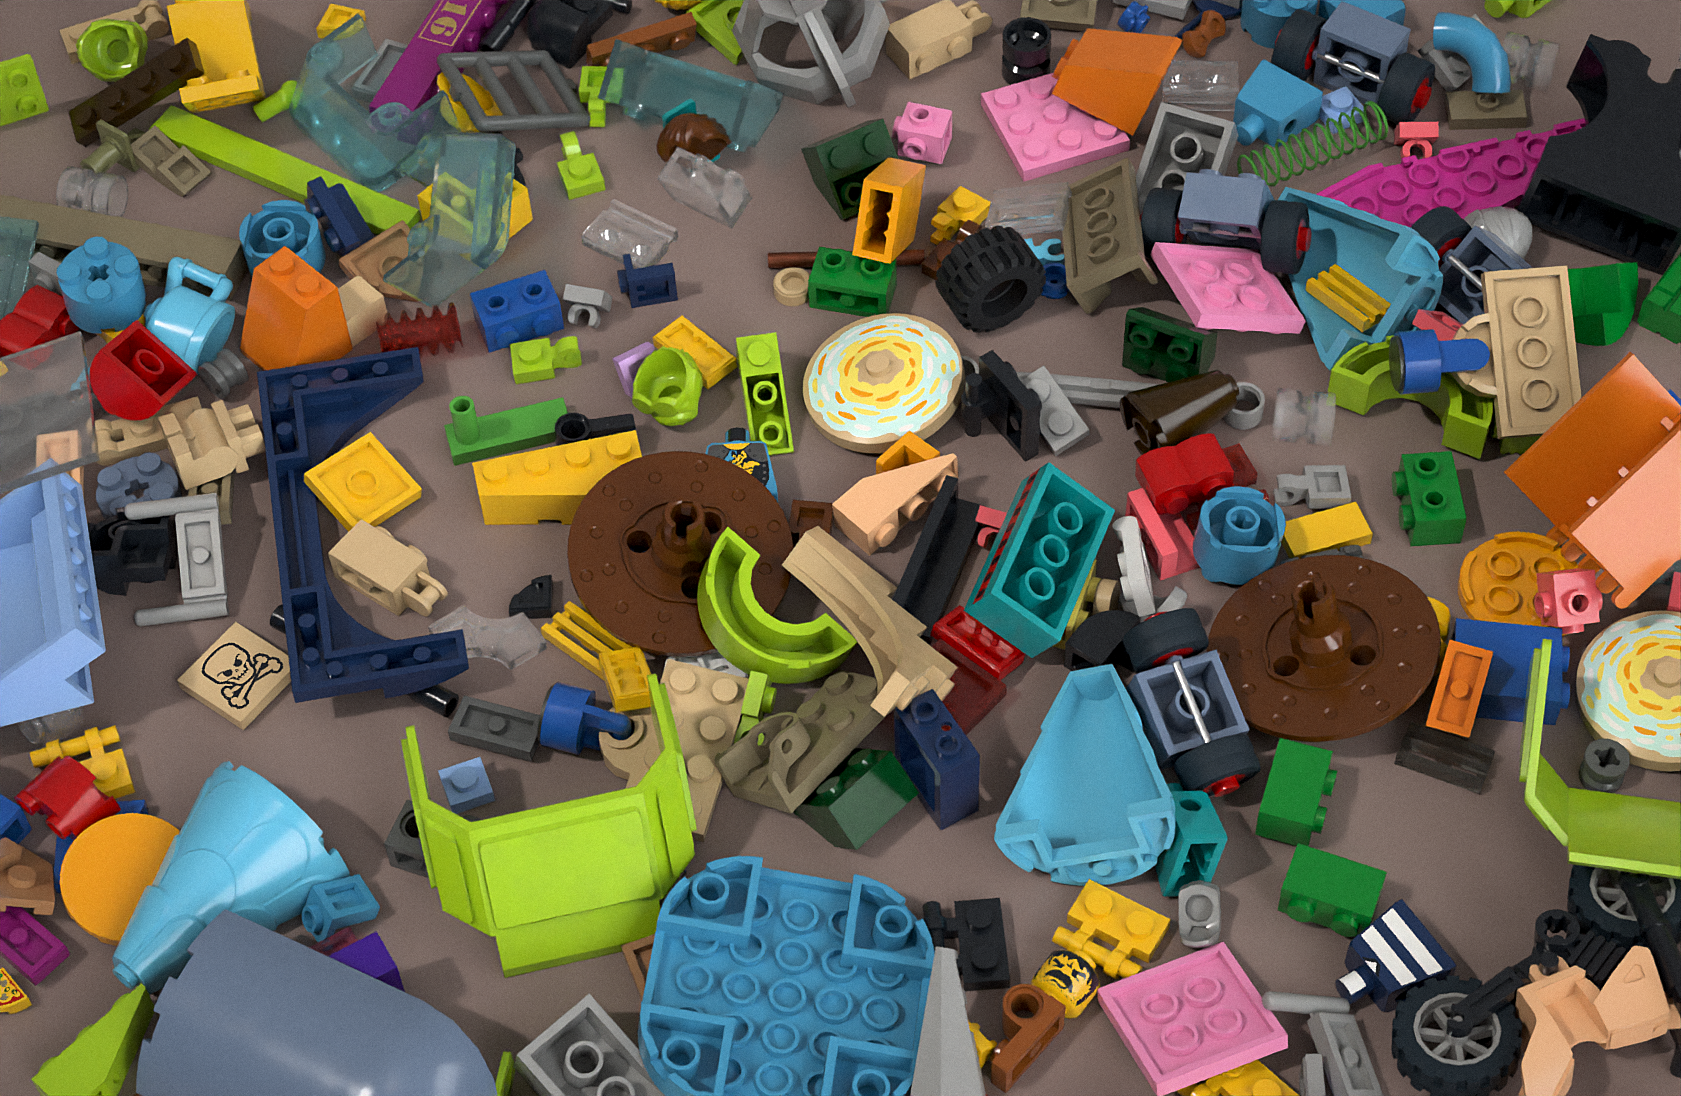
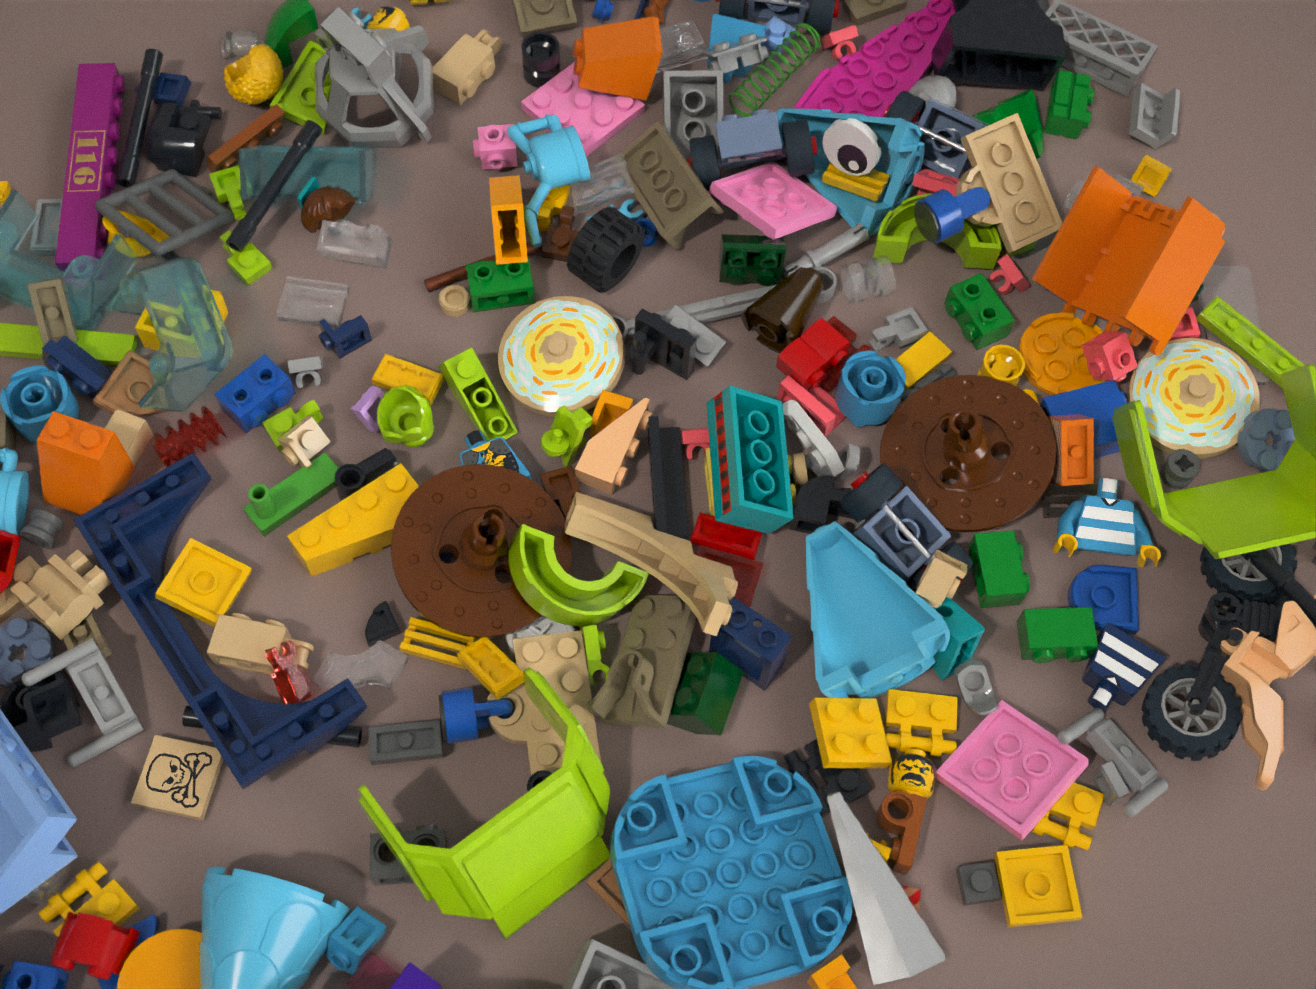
camera: 30 degrees left, 10 degrees up
(341, 151) = (52, 310): none -> dark tan plate
(402, 614) = (288, 678): none -> clear red plate
(466, 785) = (403, 797): light blue plate -> none
(543, 378) = (303, 442): none -> tan bracket
(597, 129) = (248, 225): none -> black piece
(842, 463) = (566, 434): none -> lime hips
(844, 160) = (456, 190): dark green slope -> none
(977, 163) = (551, 158): none -> medium azure piece
(1013, 906) = (850, 733): none -> yellow plate
(1196, 760) = (940, 578): none -> tan brick
(1279, 368) = (829, 250): none -> light grey pin
(1282, 110) = (748, 49): none -> light grey hinge
(1349, 252) = (851, 146): none -> white tile
(1422, 562) = (1003, 364): none -> yellow wheel
(1428, 879) = (1111, 595): none -> blue tile
(1457, 790) = (1105, 526): none -> torso
(1493, 466) = (1012, 275): none -> coral tile

